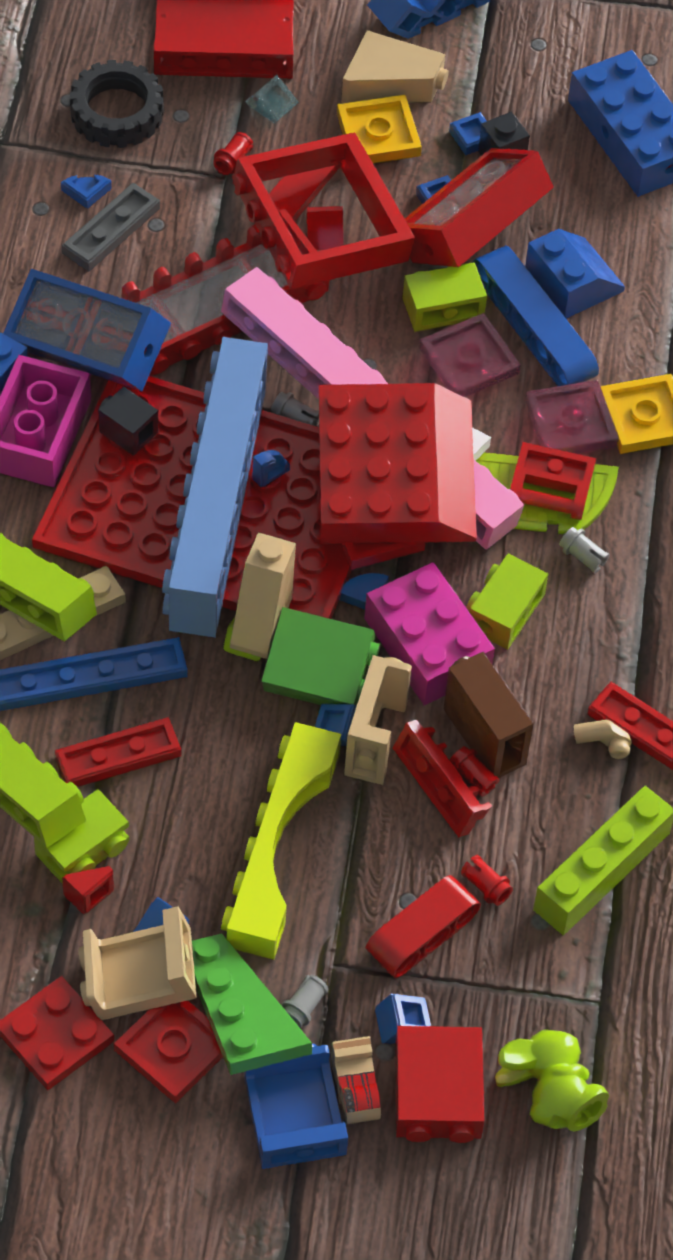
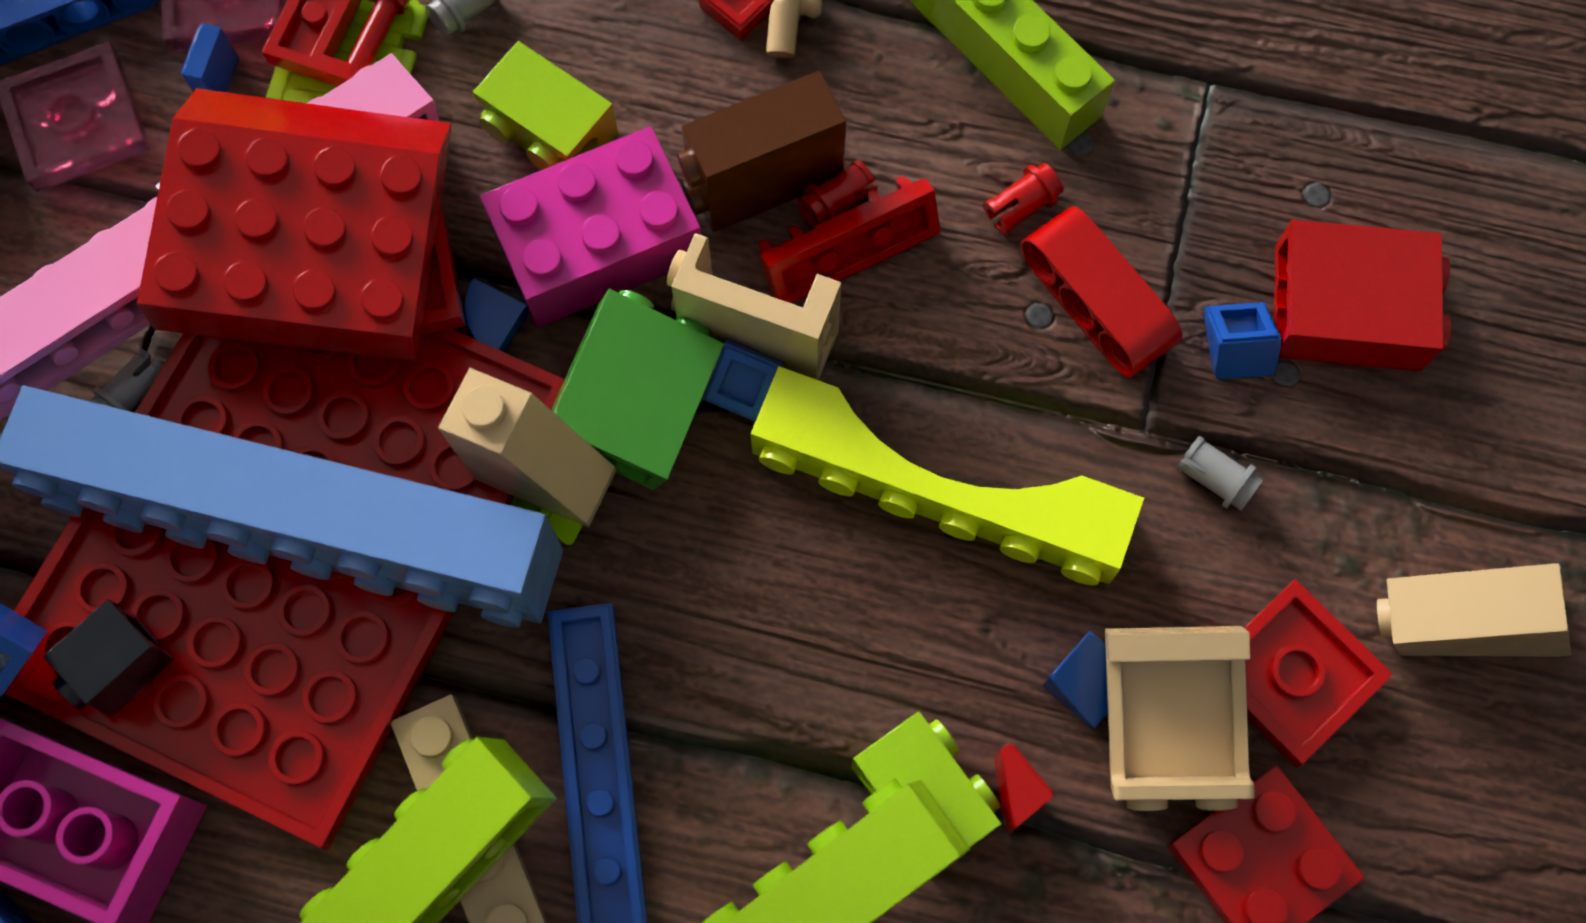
camera: 80 degrees left, 15 degrees up
(118, 752) = (755, 729): red tile -> none
(219, 1153) = (1477, 613): none -> tan slope
(242, 1011) = (1262, 558): bright green wing -> none
(268, 467) = (245, 424): blue tile -> none
(296, 1110) = (1400, 502): blue panel -> none
(355, 1080) = (1353, 410): leg -> none
(513, 419) = (210, 60): none -> blue tile
(561, 1093) = (1379, 133): lime animal -> none

